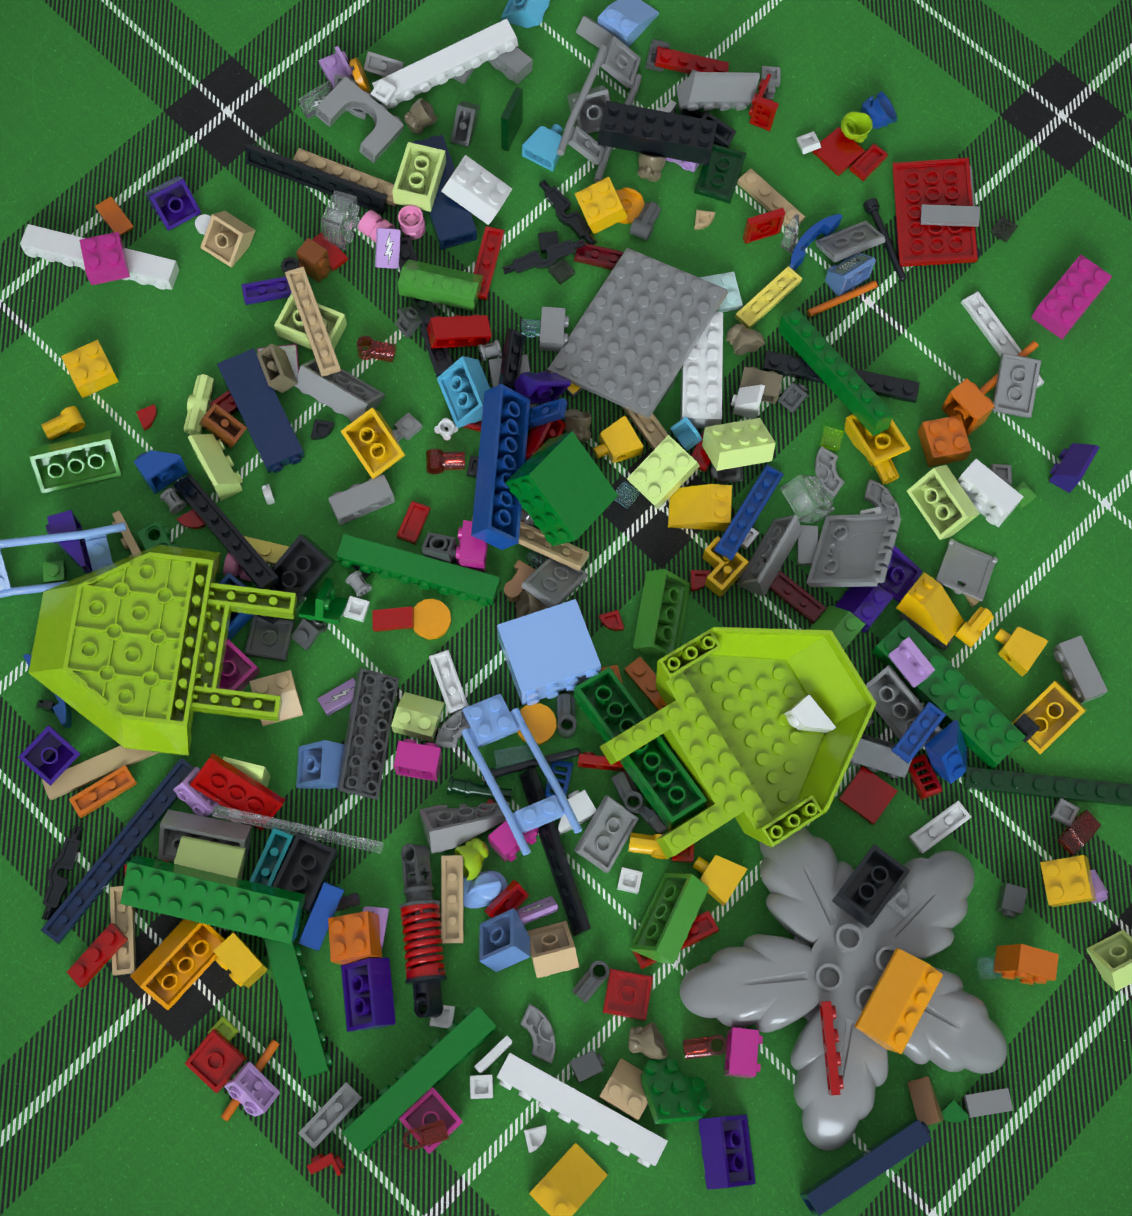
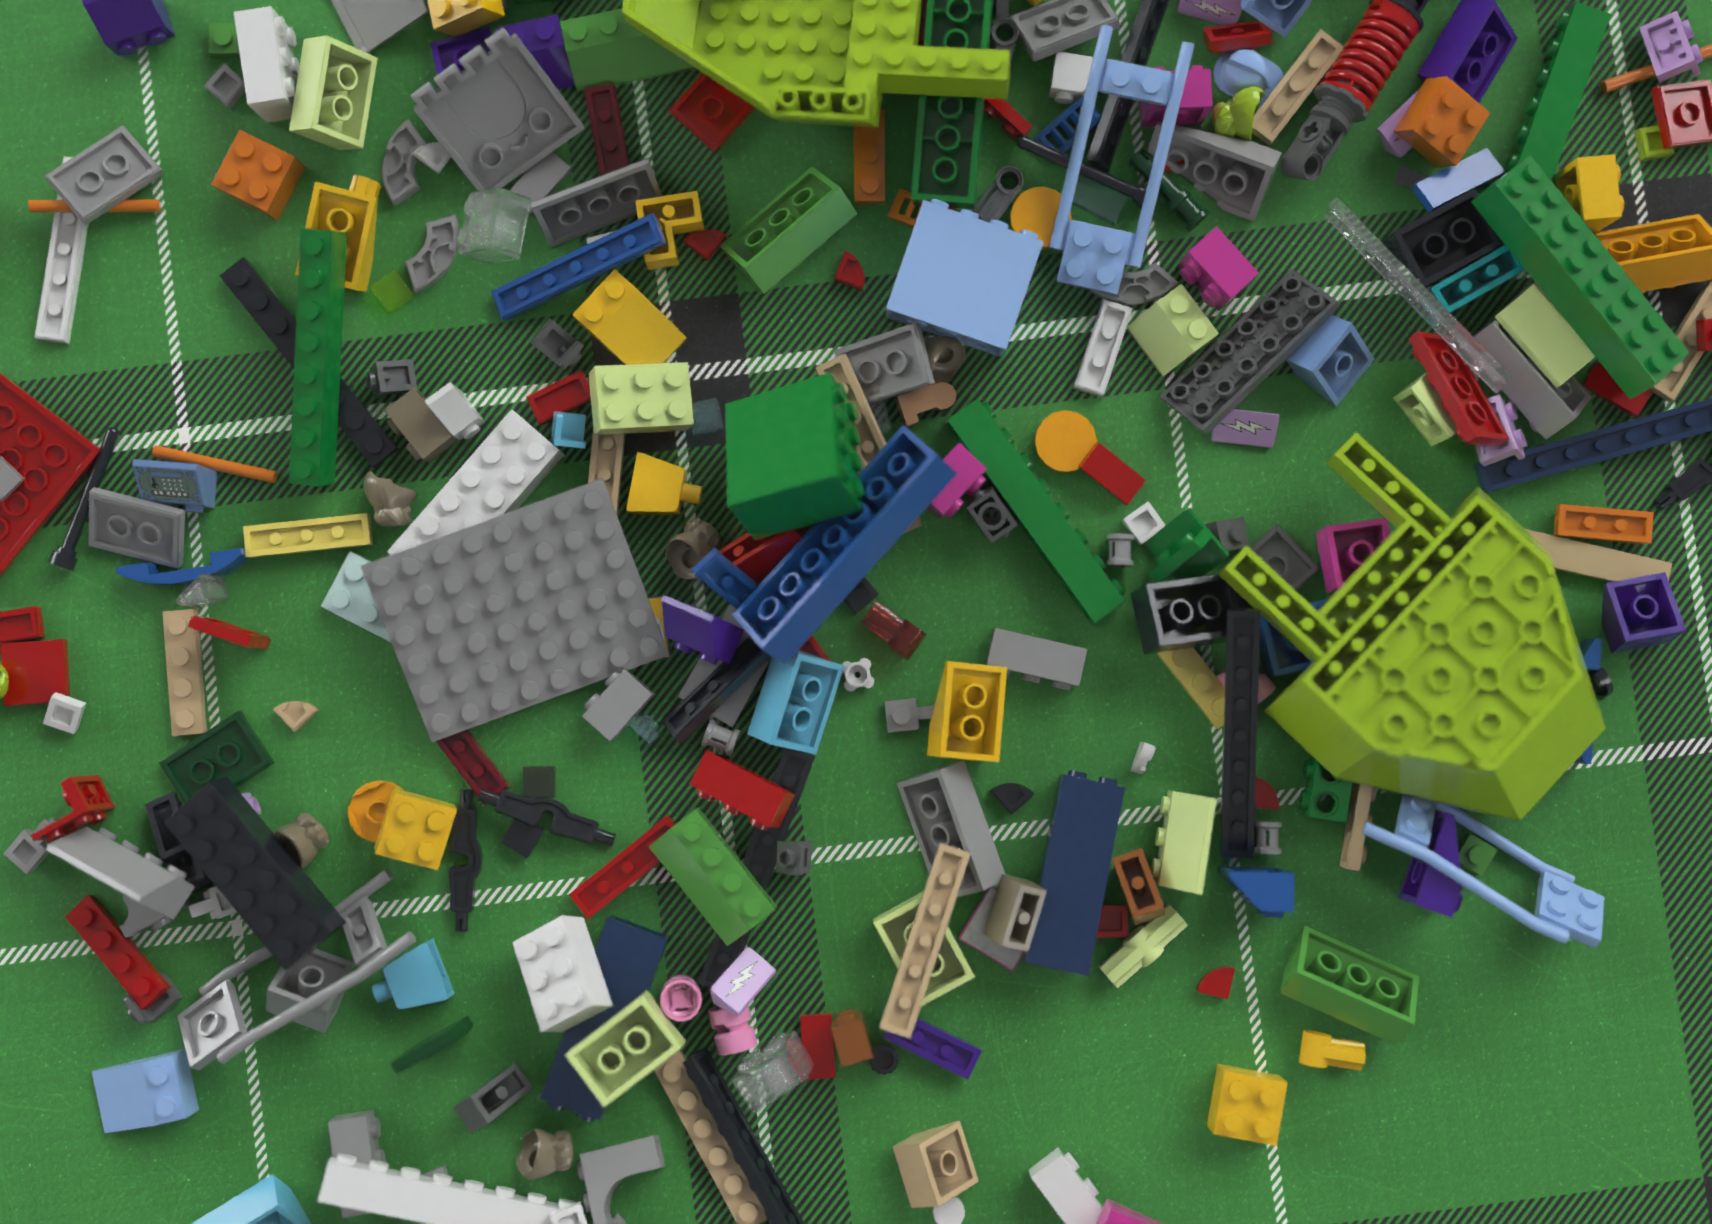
camera: 135 degrees left, 15 degrees up
(282, 685) = (1316, 485): tan slope -> none
(377, 350) = (861, 846): clear red piece -> none
(413, 522) = (992, 581): red tile -> none
(594, 32) = (207, 1102): light grey tile -> none
(644, 224) = (380, 762): dark grey piece -> none
(738, 444) = (518, 360): yellowish green brick -> none
(970, 404) = (188, 190): orange brick -> none

